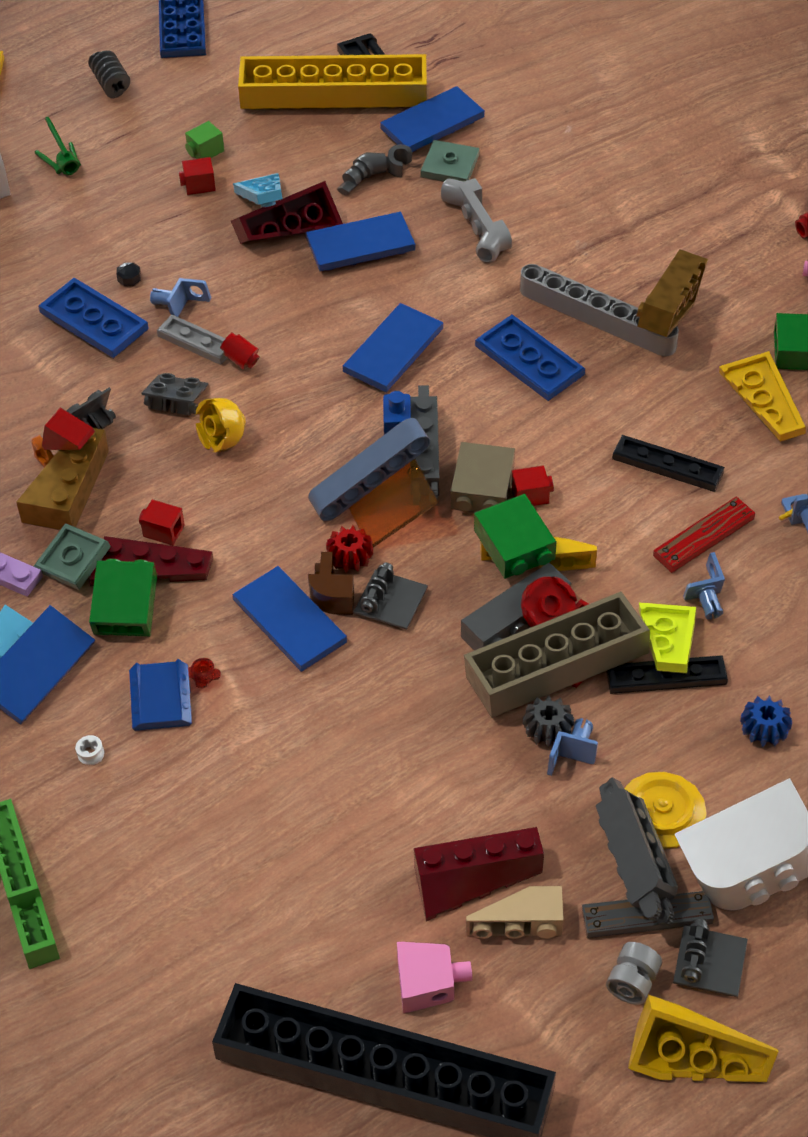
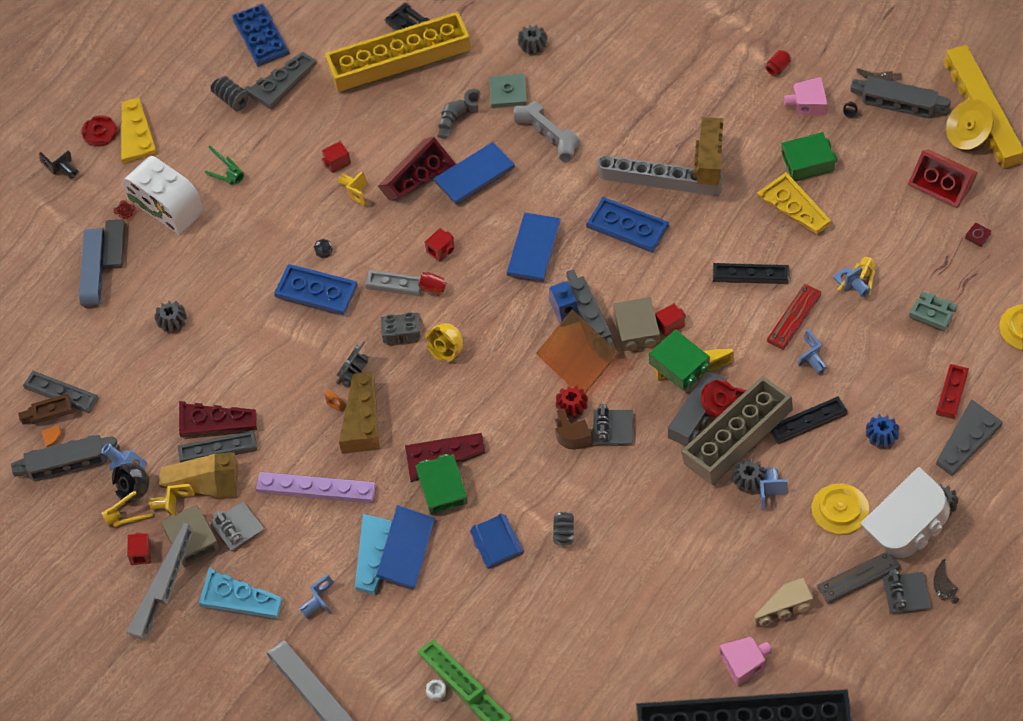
camera: 15 degrees left, 5 degrees up
(65, 432) = (351, 383): red slope -> none
(72, 556) = (391, 466): sand green plate -> none
(86, 757) = (467, 596): white bush -> none
(161, 522) = (438, 423): red brick -> none
(168, 82) = (281, 81): none -> dark grey wing
(180, 295) = (367, 256): medium blue bracket -> none
(203, 665) = (516, 511): clear red plate -> none
(204, 141) = (327, 128): bright green brick -> none
(204, 214) = (354, 186): none -> yellow bracket
(255, 707) = (563, 528): none -> dark grey gear
(260, 190) = (390, 155): medium azure wing -> none
(274, 309) = (440, 244): none -> red brick
(289, 618) = (553, 461): blue tile -> none
(369, 469) = (563, 343): sand blue beam -> none
(432, 119) = (480, 60): blue tile -> none
(475, 867) = (744, 584): dark red wedge -> none
(508, 113) = (532, 39): none -> dark grey gear
(633, 974) = (866, 615): light grey wheel -> none
(637, 852) = (838, 540): dark grey hinge -> none
(670, 634) = (803, 393): neon yellow wing -> none
(689, 1045) = (912, 647): yellow wedge -> none
(770, 971) = (943, 586): none -> clear smoke bar

